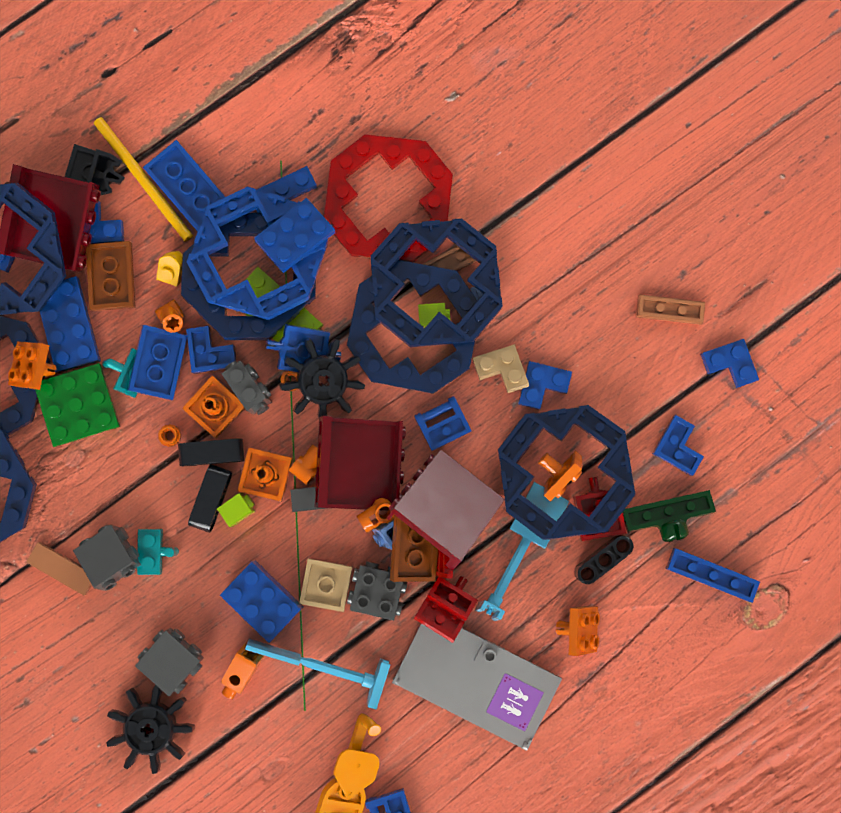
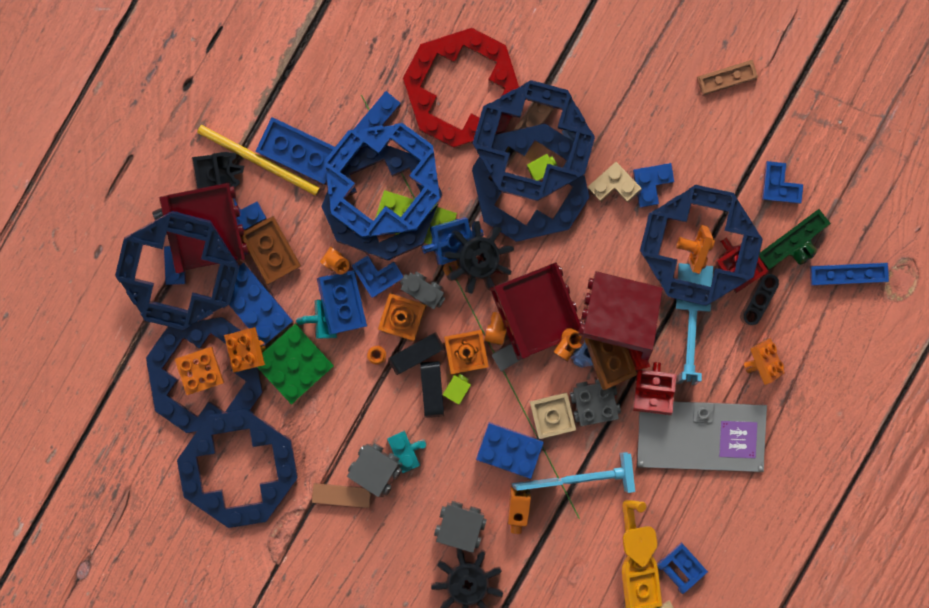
camera: 25 degrees left, 5 degrees up
(170, 268) = (315, 222): yellow plate -> none
(294, 235) = (406, 153): blue plate -> none
(446, 430) = (593, 252): blue plate -> none
(736, 358) = (794, 93): blue plate -> none

